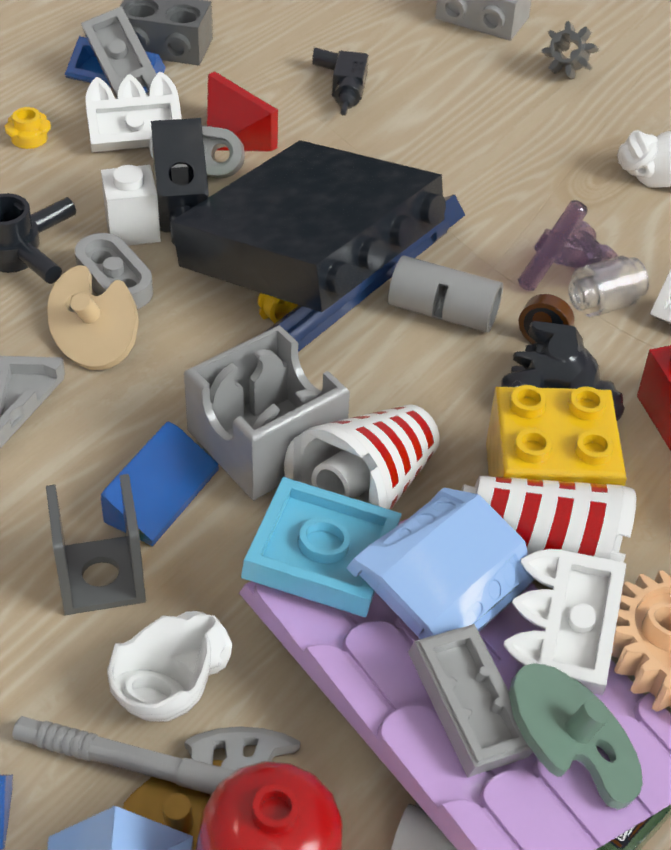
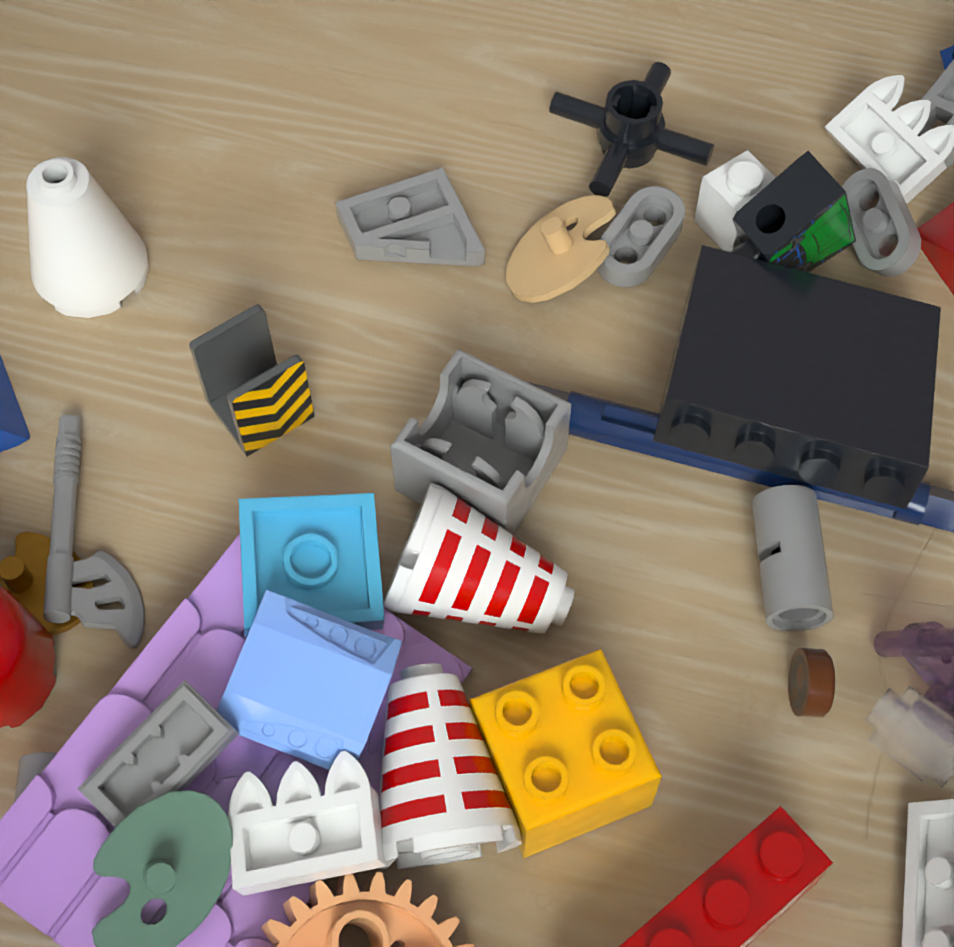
camera: 70 degrees right, 15 degrees up
(28, 128) = (820, 64): yellow plate -> none
(162, 481) = (370, 398): blue slope -> none
(168, 665) = (153, 497): white hair -> none
(558, 362) = (735, 728): black animal -> none

